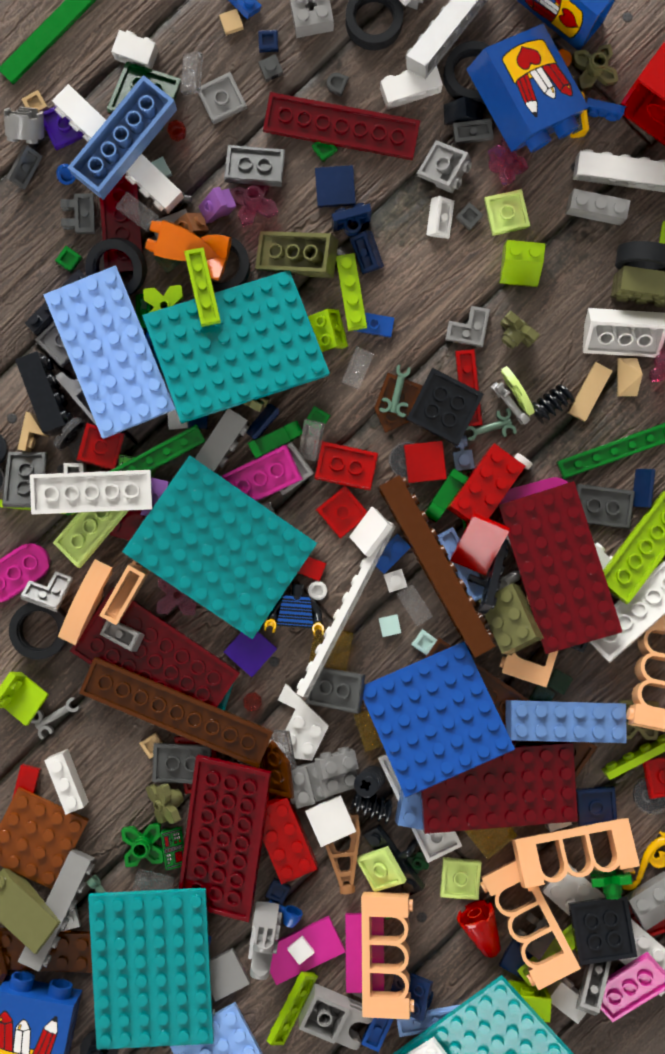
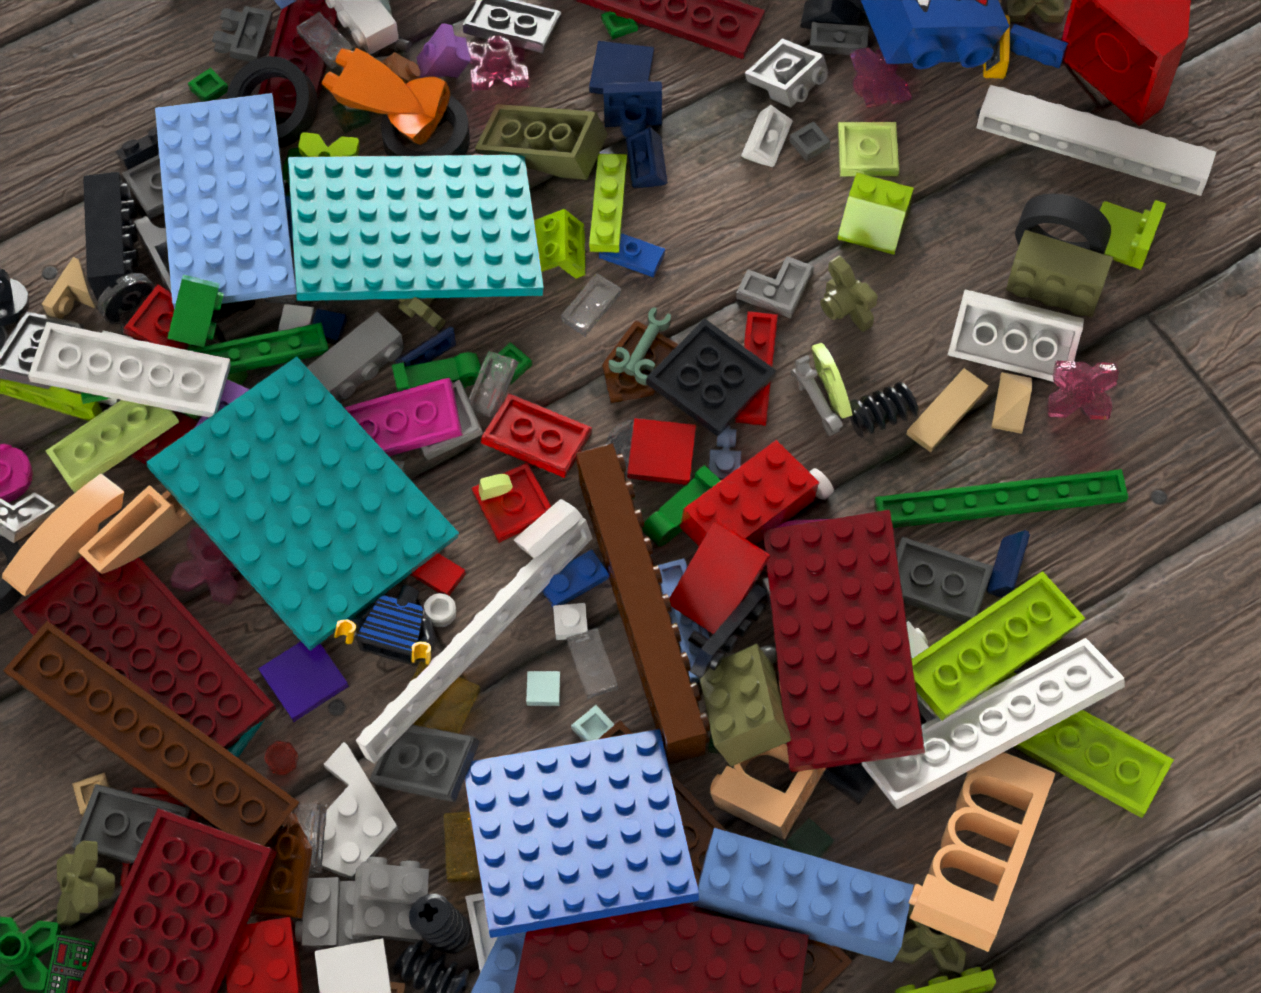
camera: 10 degrees right, 25 degrees down
(118, 441) = (194, 311): none -> green brick
(122, 635) = (105, 602): light grey slope -> none
(202, 287) = (387, 138): lime plate -> none
(331, 509) = (494, 486): none -> yellowish green tile
(504, 423) = (801, 427): sand green bar -> none
(597, 207) = (1004, 163): light grey brick -> none

